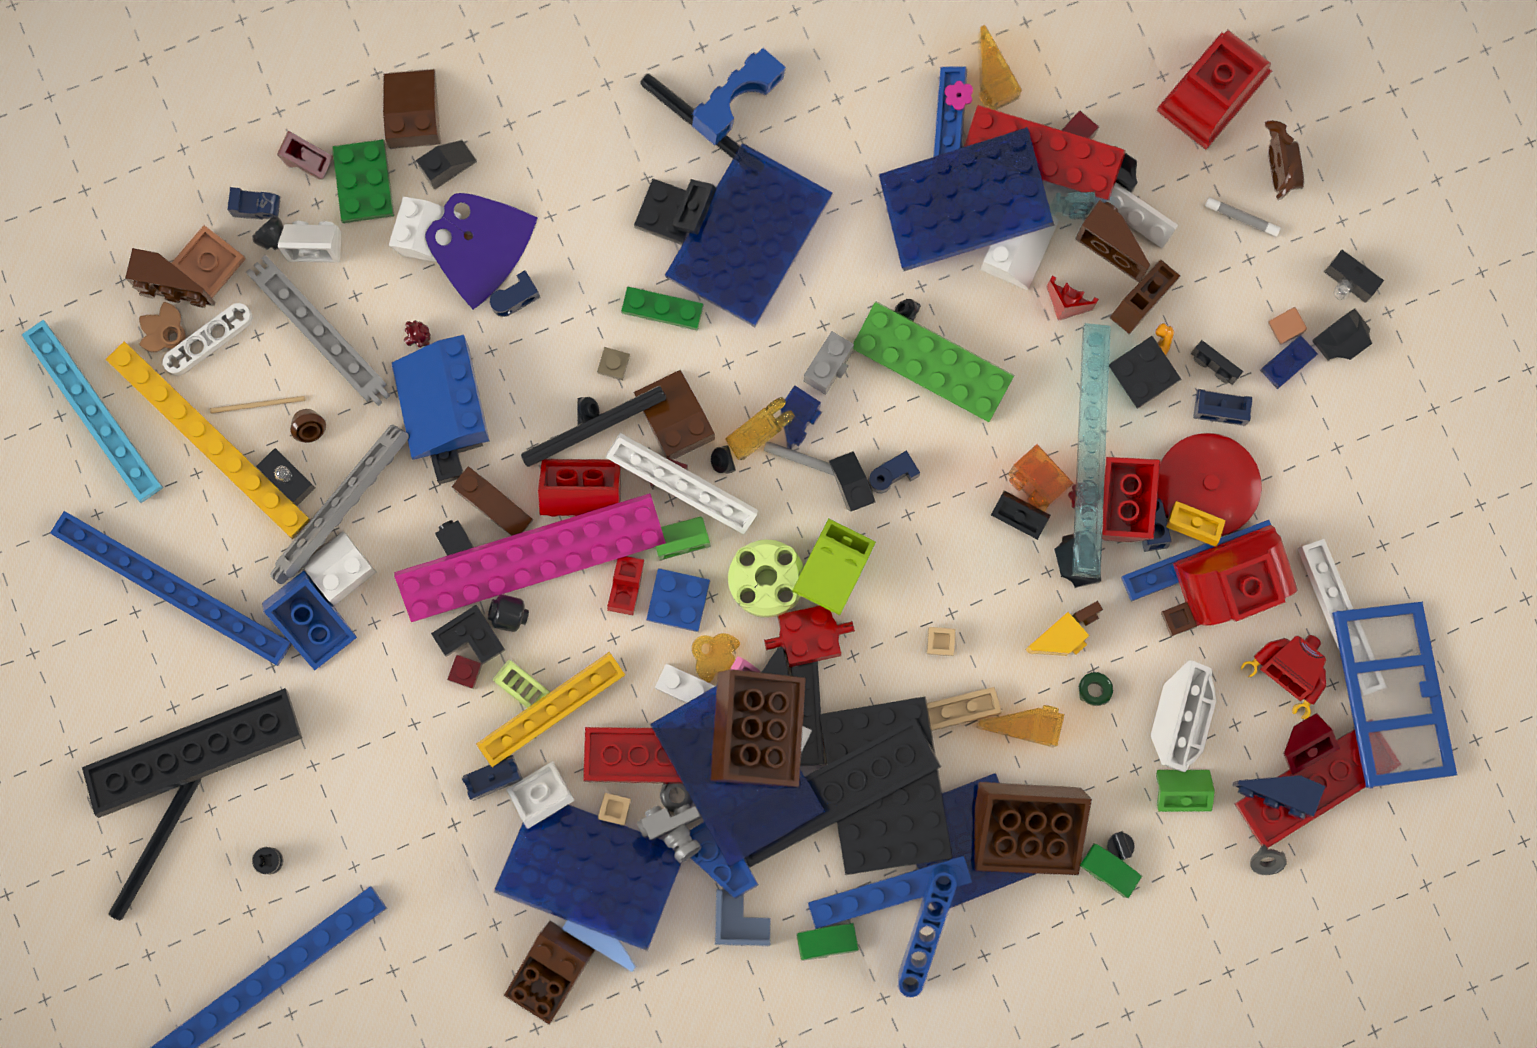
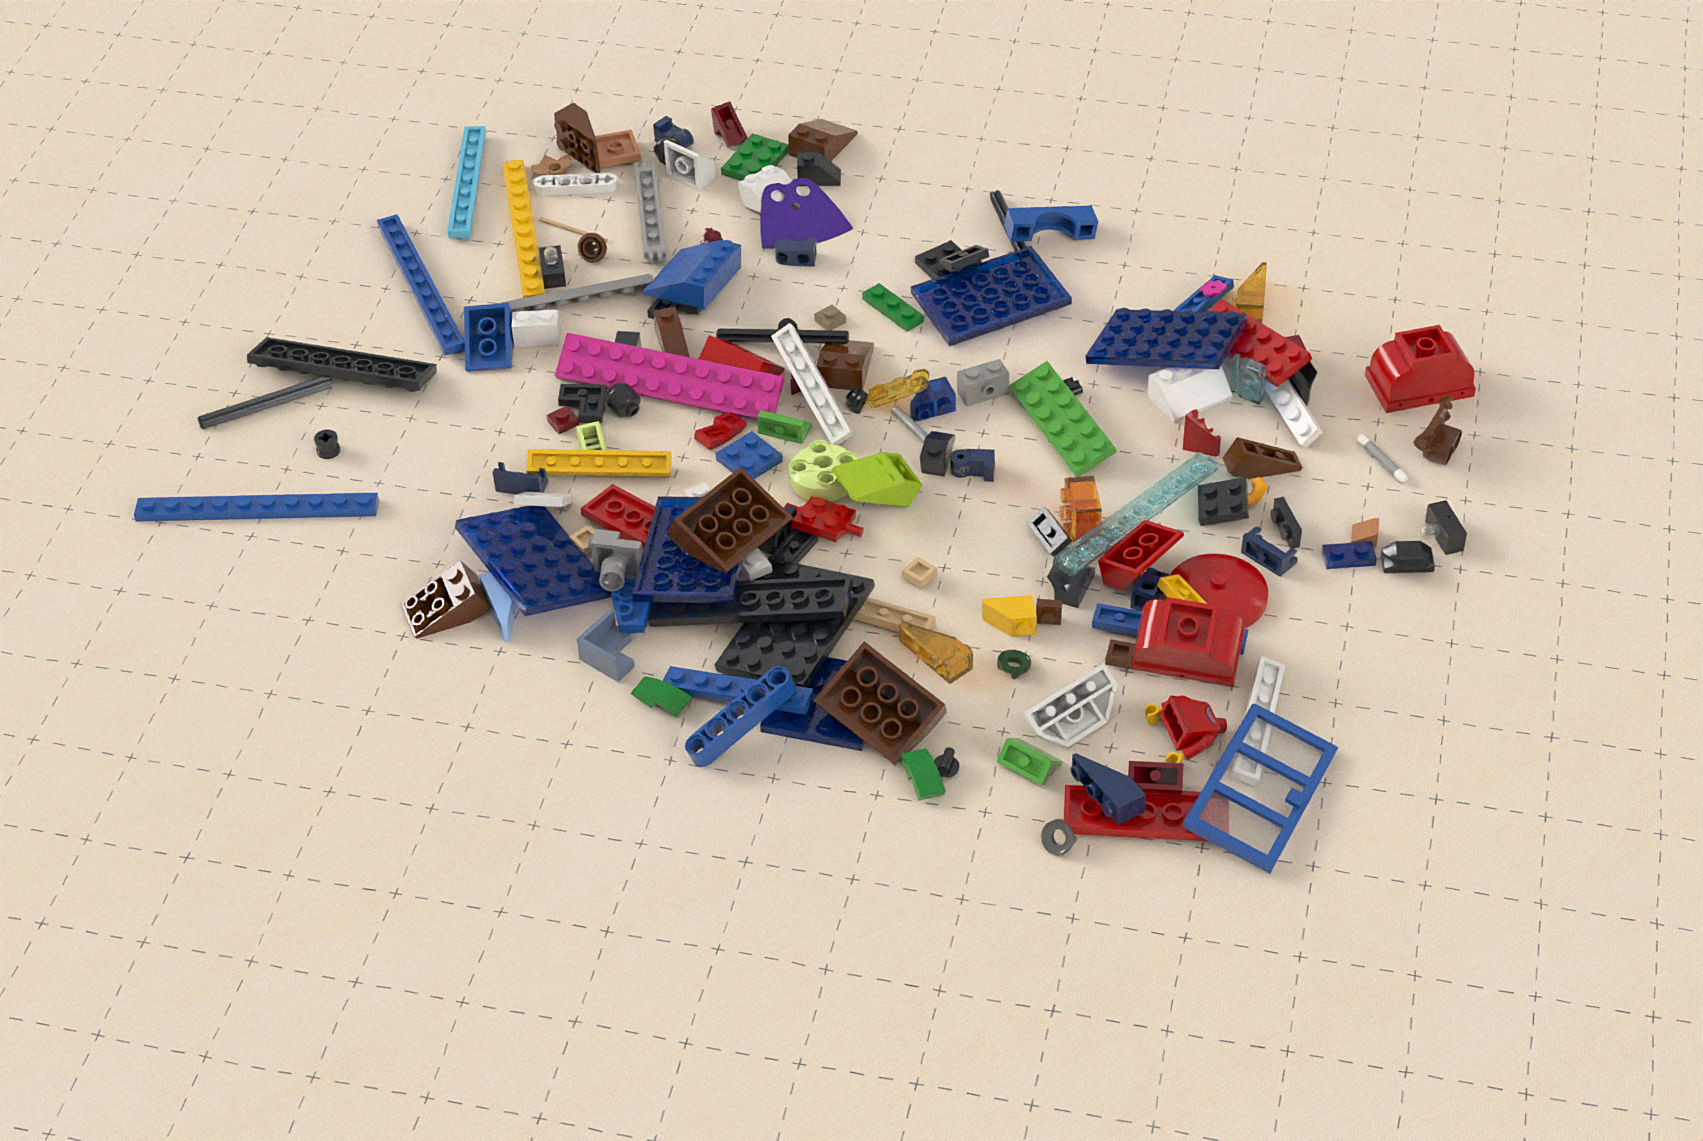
camera: 40 degrees right, 35 degrees down
(1111, 239) = (1258, 406): reddish brown slope -> none

